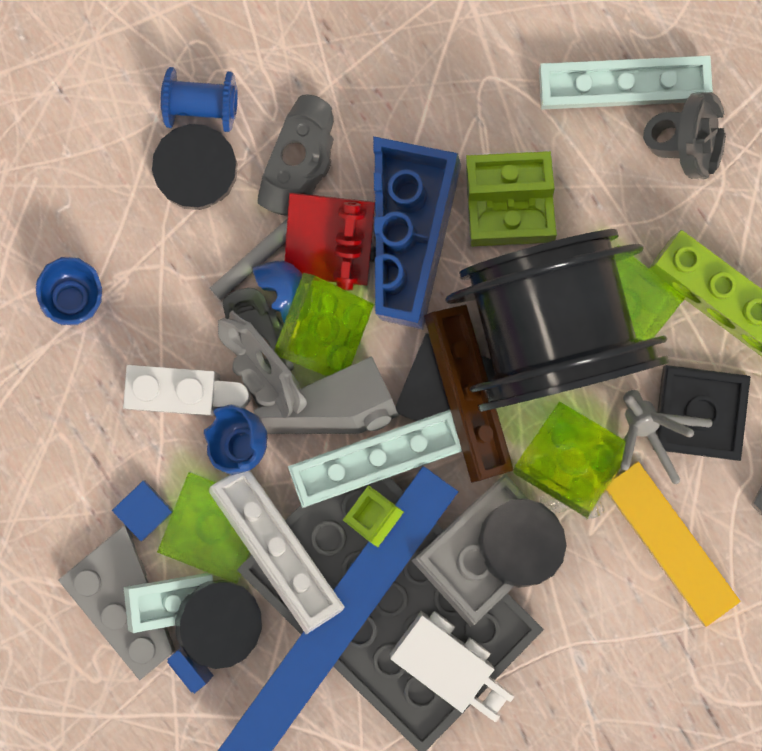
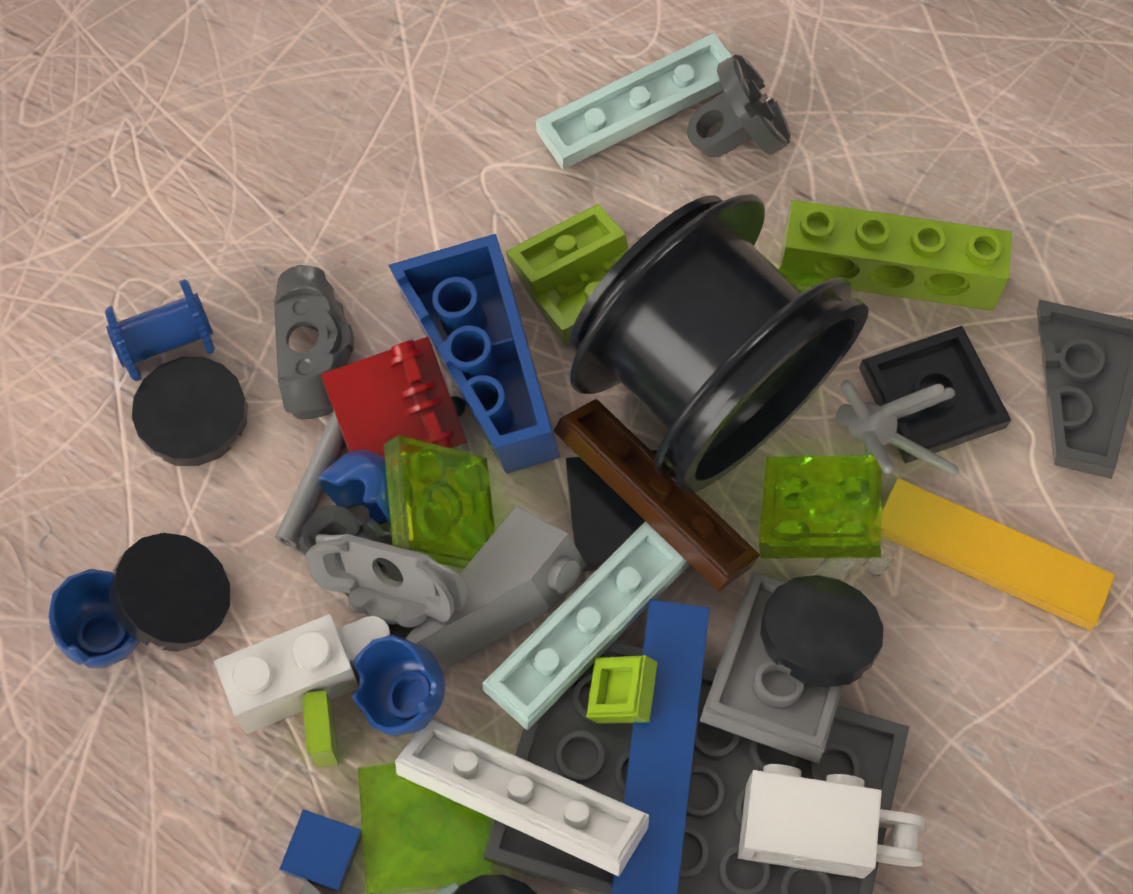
camera: 30 degrees left, 20 degrees down
(123, 296) = (169, 591): none -> black tile
(176, 436) = (320, 728): none -> lime tile

